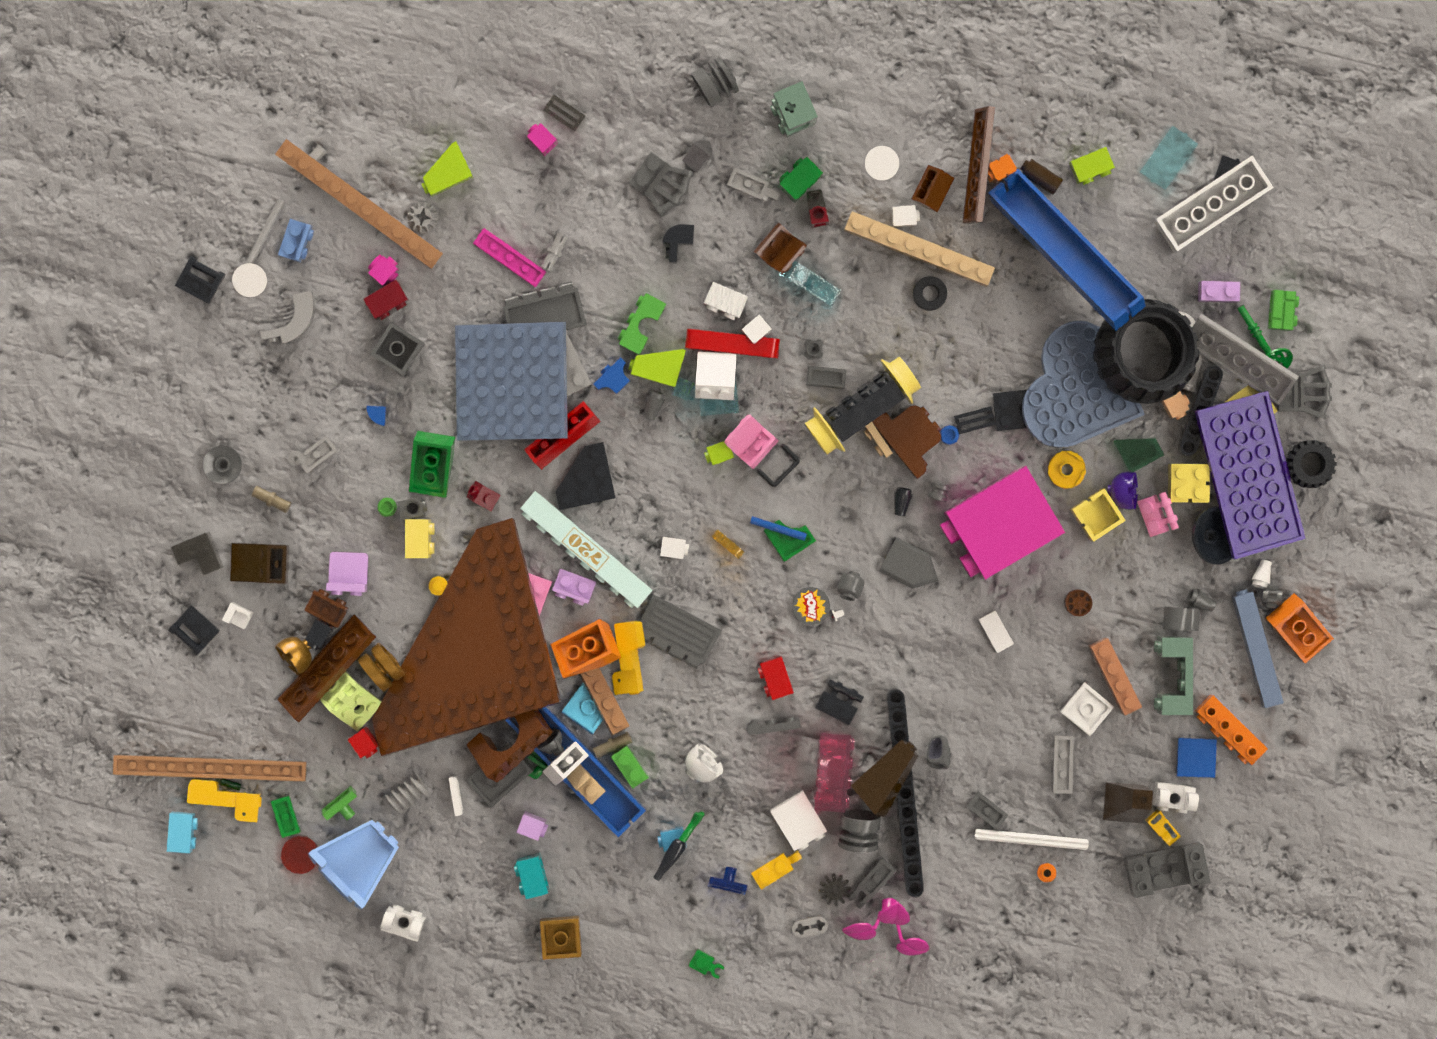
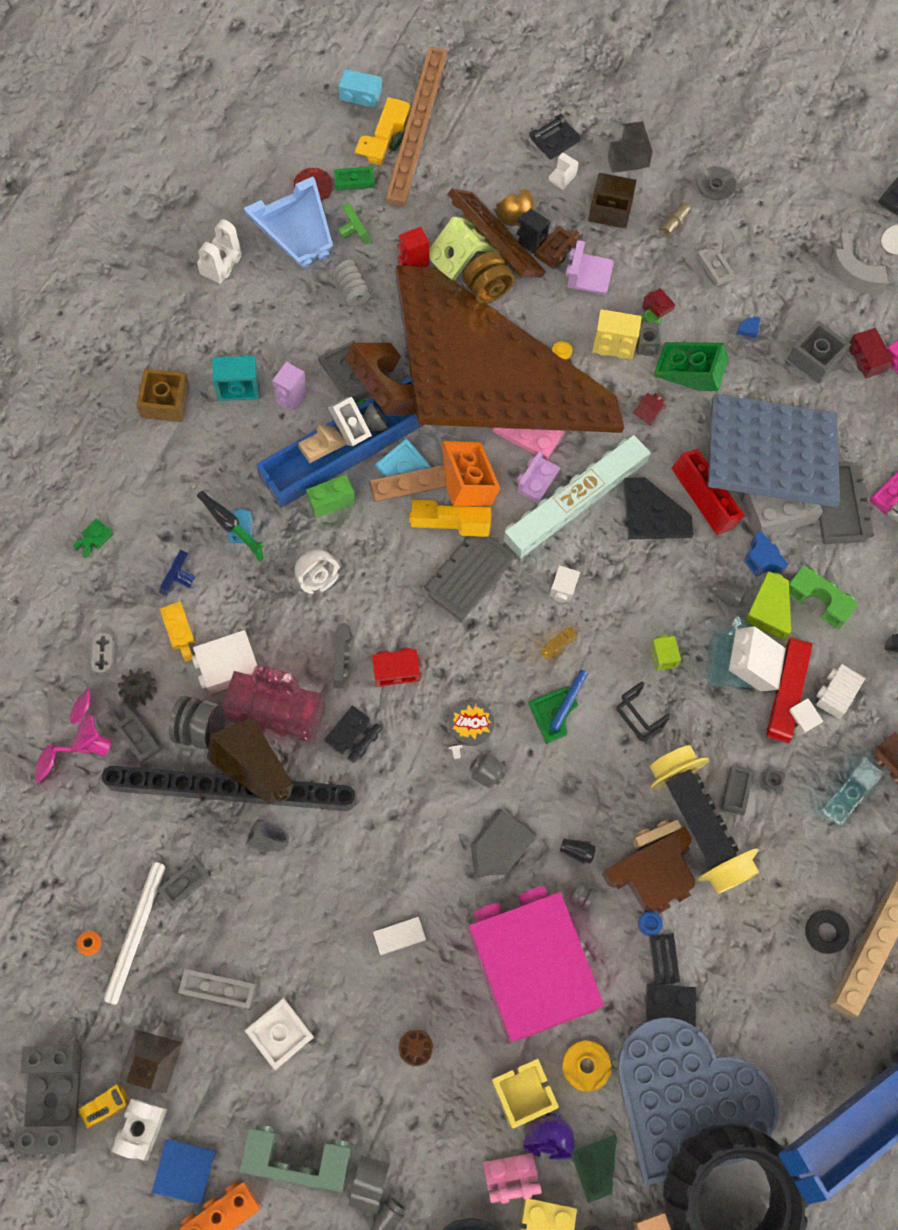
camera: 90 degrees right, 20 degrees down
(373, 504) = (658, 303): none -> dark red bracket
(456, 796) = (338, 327): white tile -> none
(612, 745) = (358, 485): dark tan pin -> none
(750, 441) = (676, 685): bright pink bracket -> none
(1115, 676) = (312, 1078): nougat brick -> none

